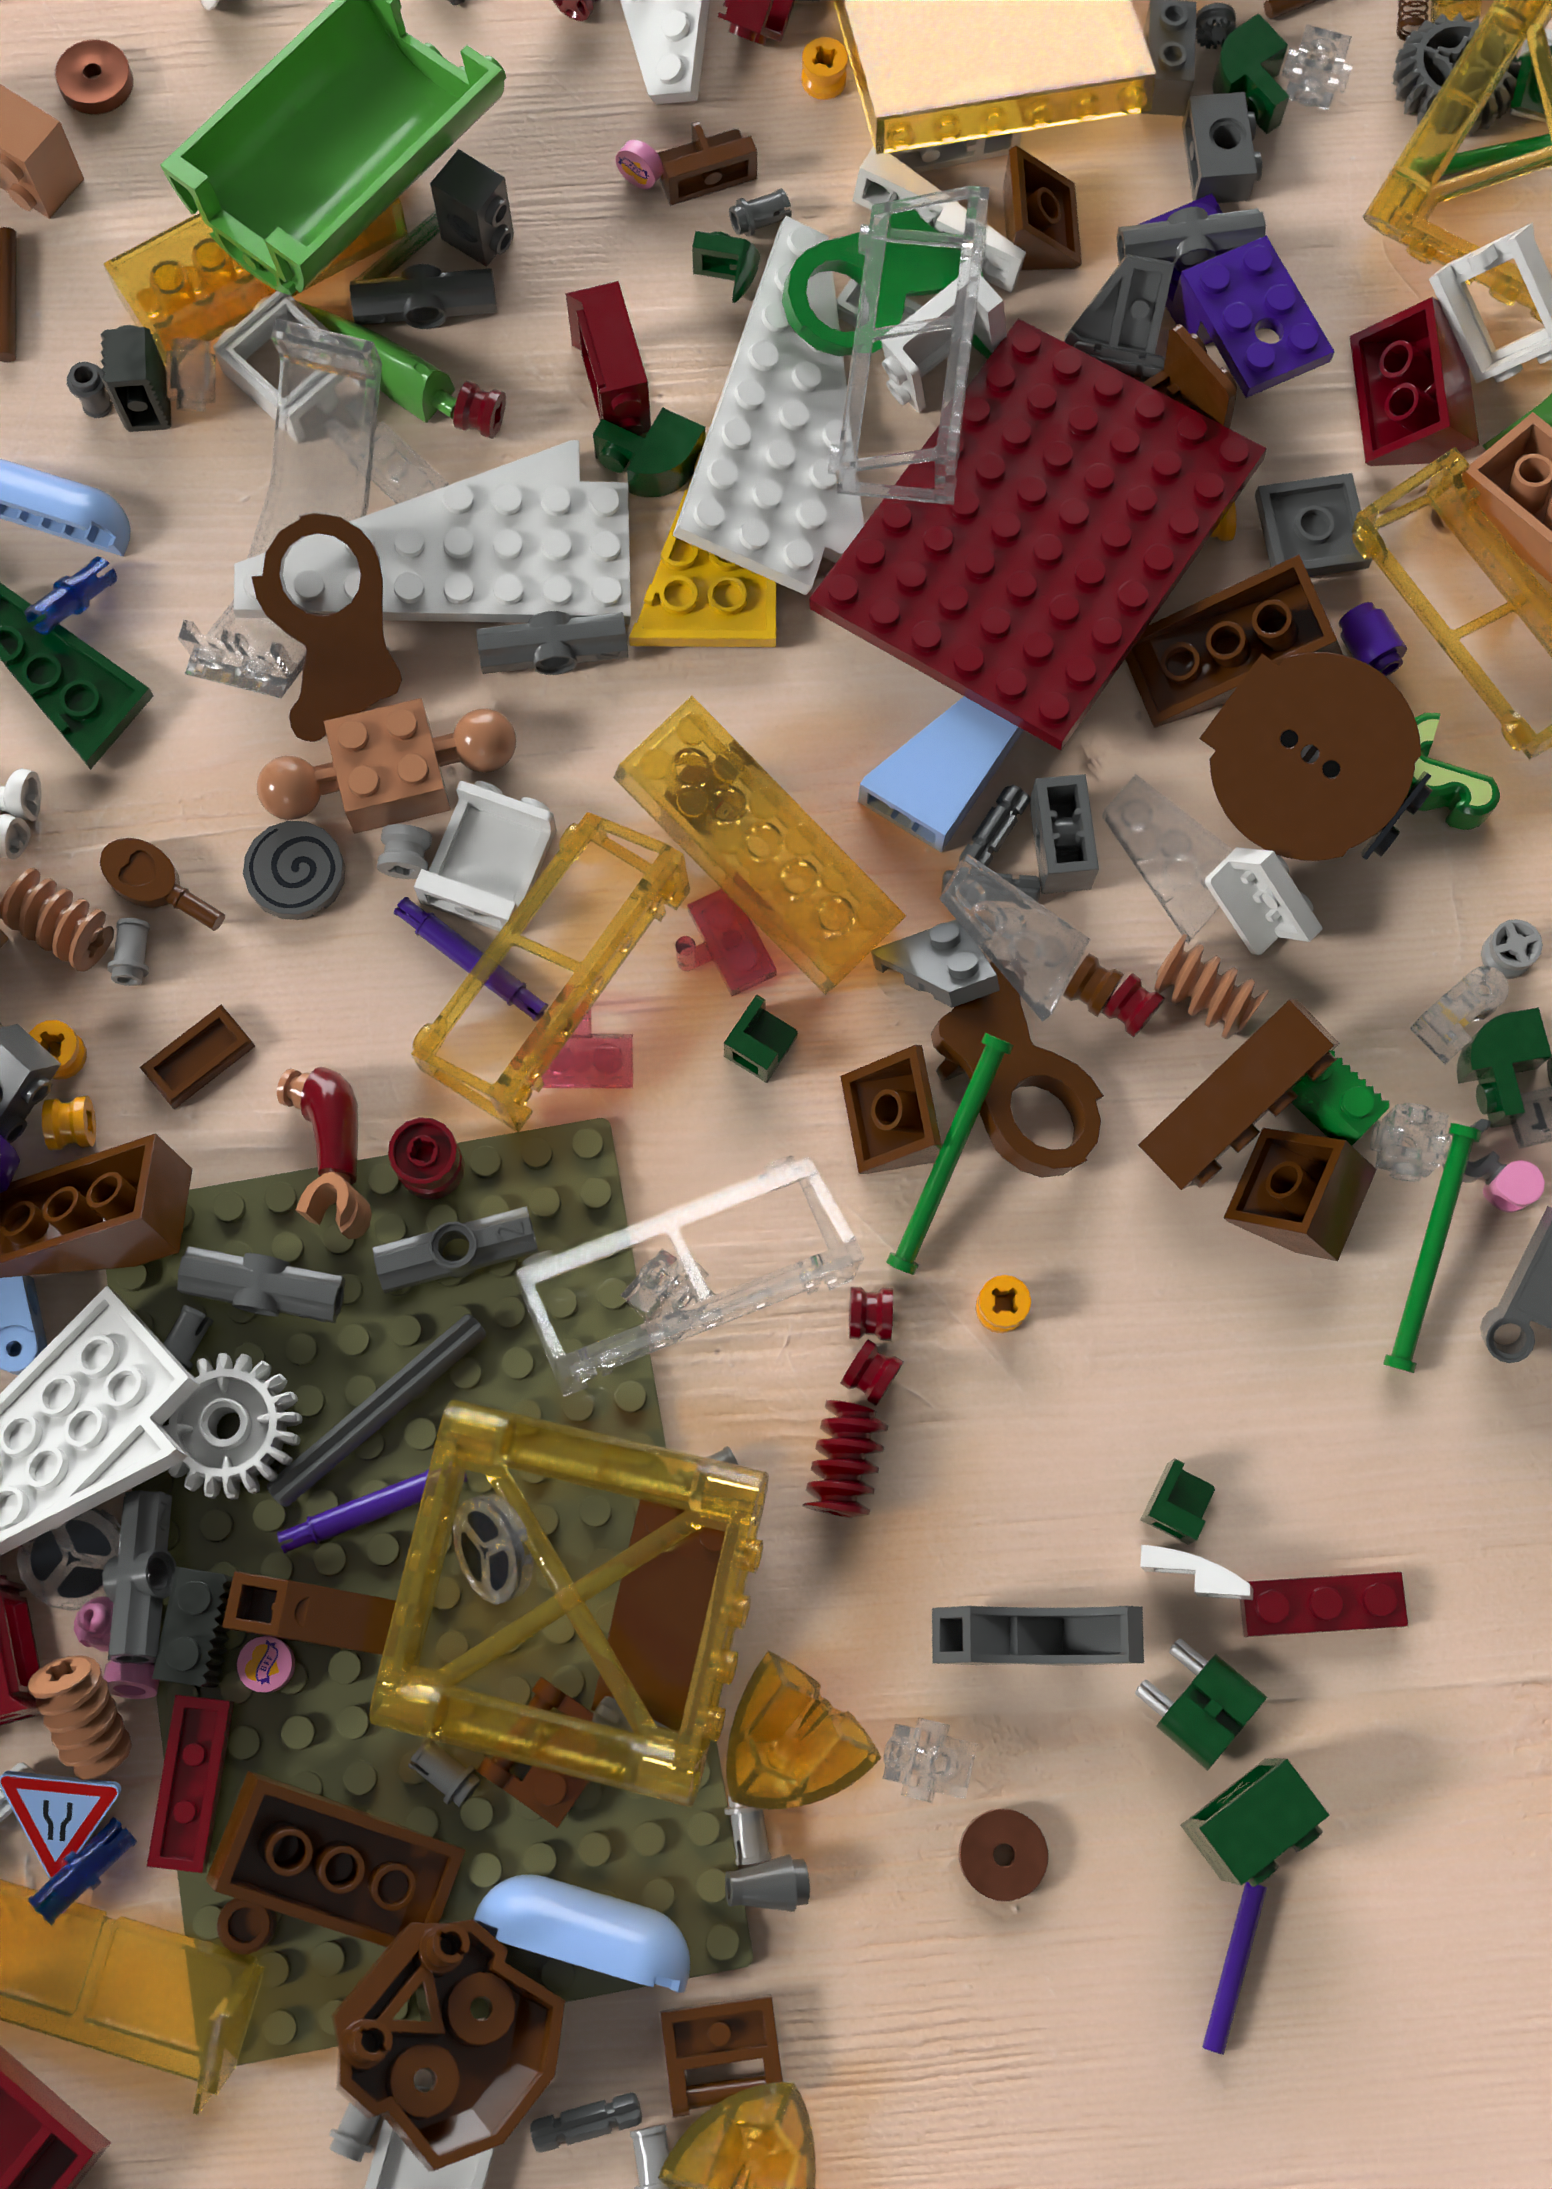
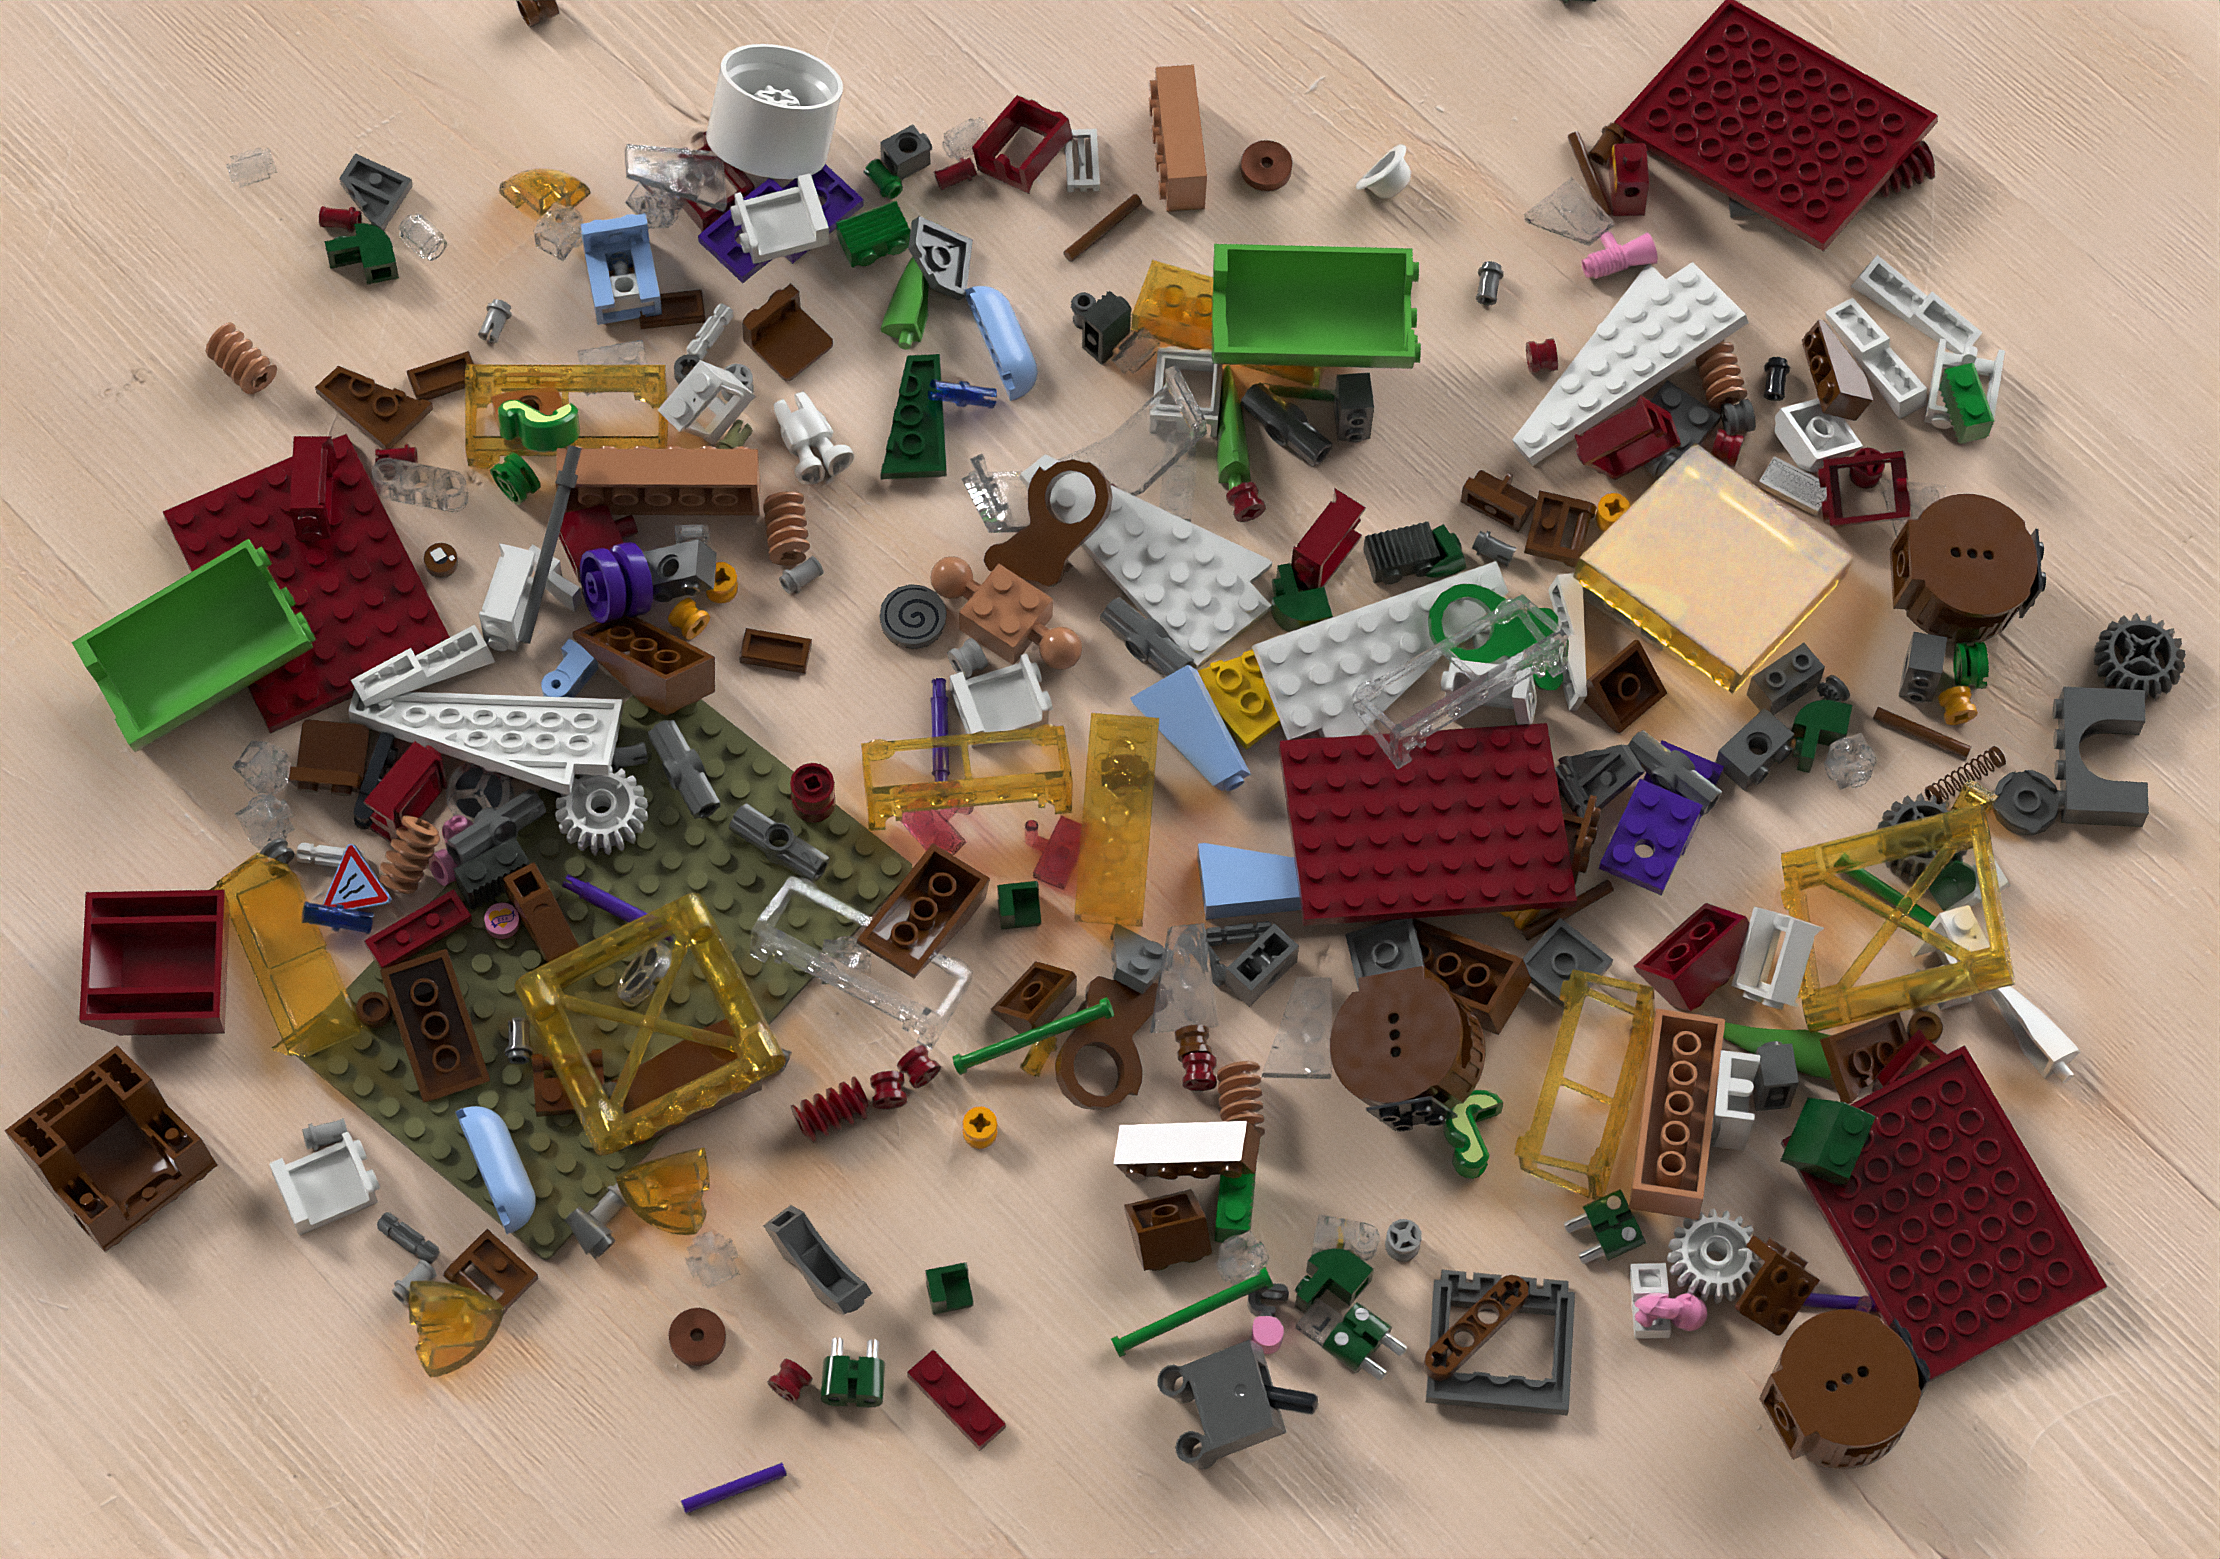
camera: 50 degrees right, 10 degrees down
(150, 880) = (847, 554): reddish brown piece -> none
(333, 1110) = (801, 731): piece -> none
(376, 1410) = (668, 872): dark grey axle -> none
(480, 2069) = (395, 1159): reddish brown brick -> none
(639, 164) = (1464, 466): bright pink tile -> none
(684, 304) = (1401, 553): none -> pearl dark grey brick
(694, 1154) = (925, 911): none -> reddish brown slope
(720, 674) = (1194, 726): none -> light blue slope
(783, 138) = (1549, 524): none -> reddish brown plate
(968, 1171) = (1038, 1056): none -> clear yellow pin
(1154, 1789) = (790, 1380): none -> dark red wheel
(1159, 696) = (1384, 948): none -> dark grey plate
(1210, 1578) = (916, 1320): white slope -> none
(1244, 503) = (1583, 900): none -> reddish brown bar
(1256, 1822) = (811, 1432): dark green brick -> none
(1262, 899) = (1308, 1087): white bracket -> none
(1372, 638) = (1522, 1042): dark purple brick -> none

